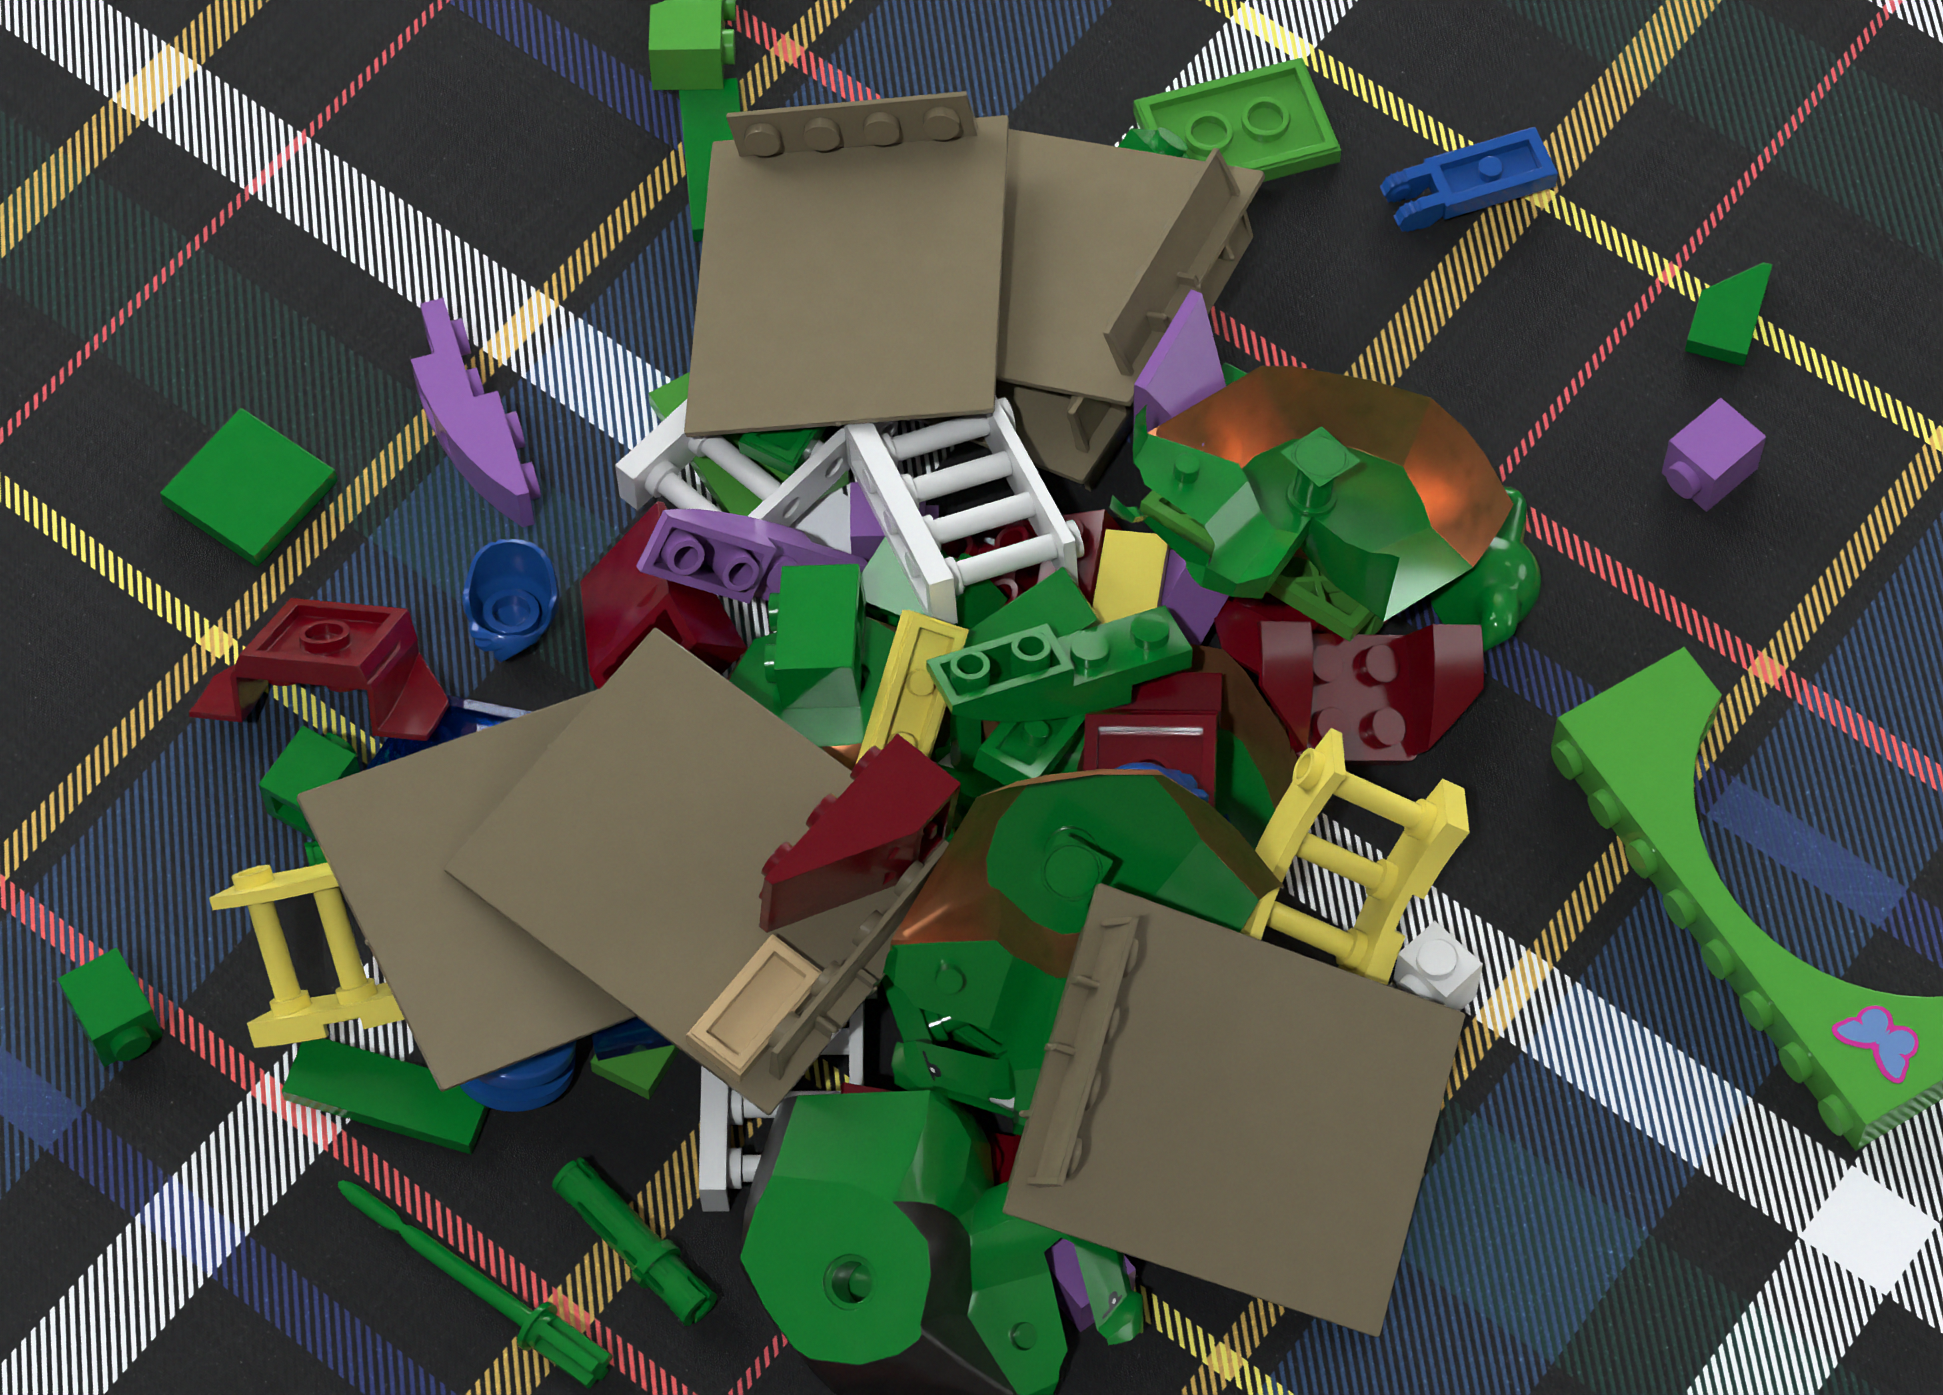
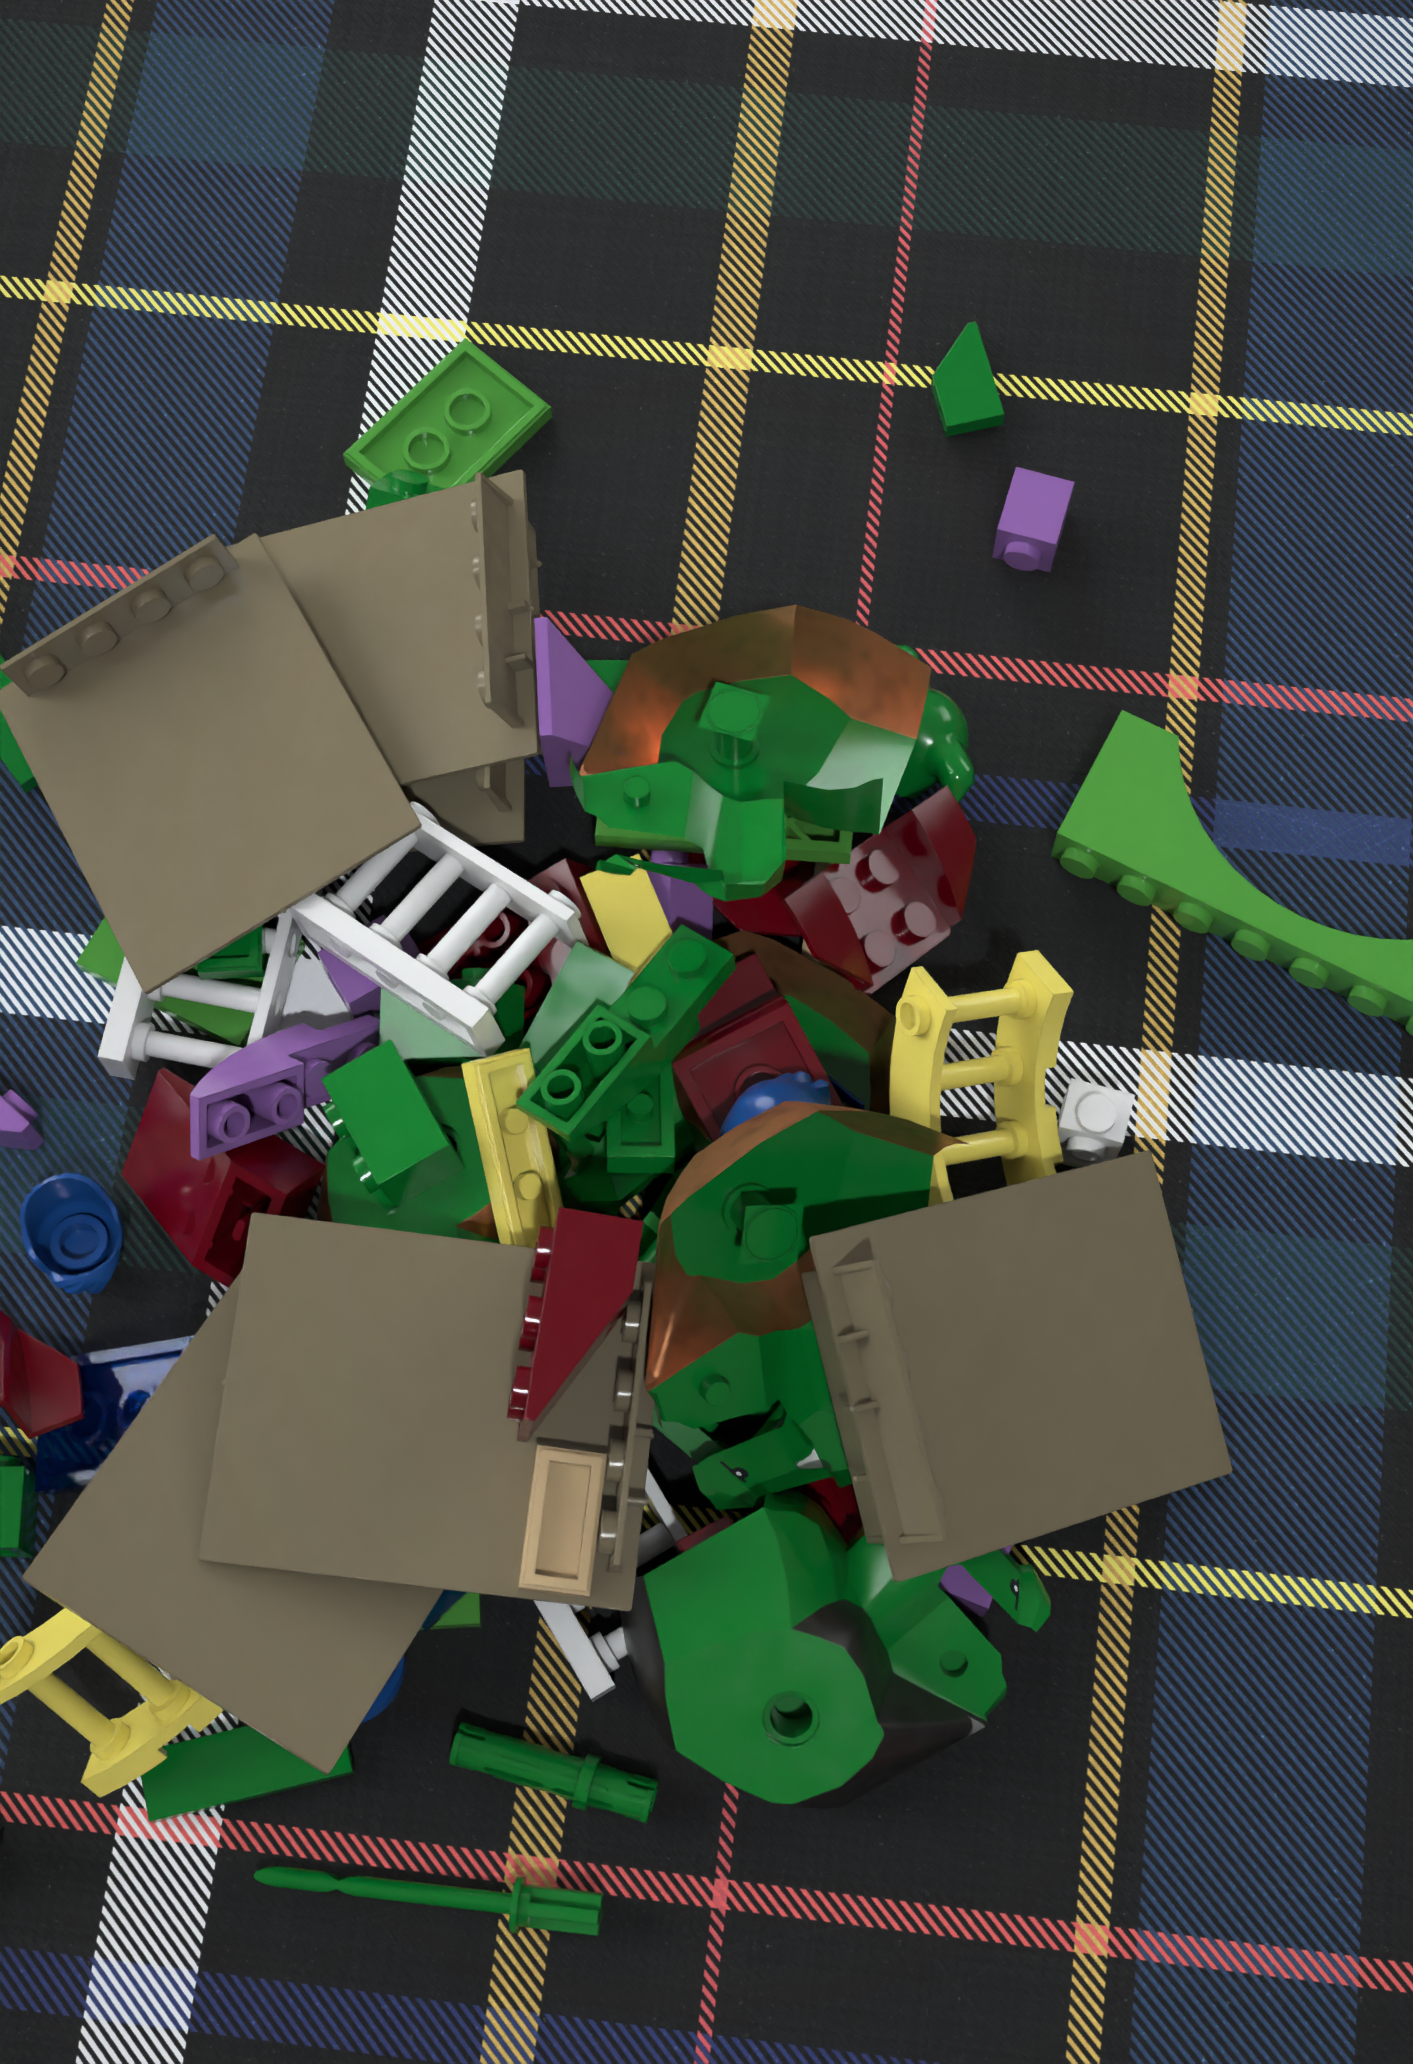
camera: 30 degrees left, 10 degrees up
(1471, 179) = (679, 373): blue hinge -> none

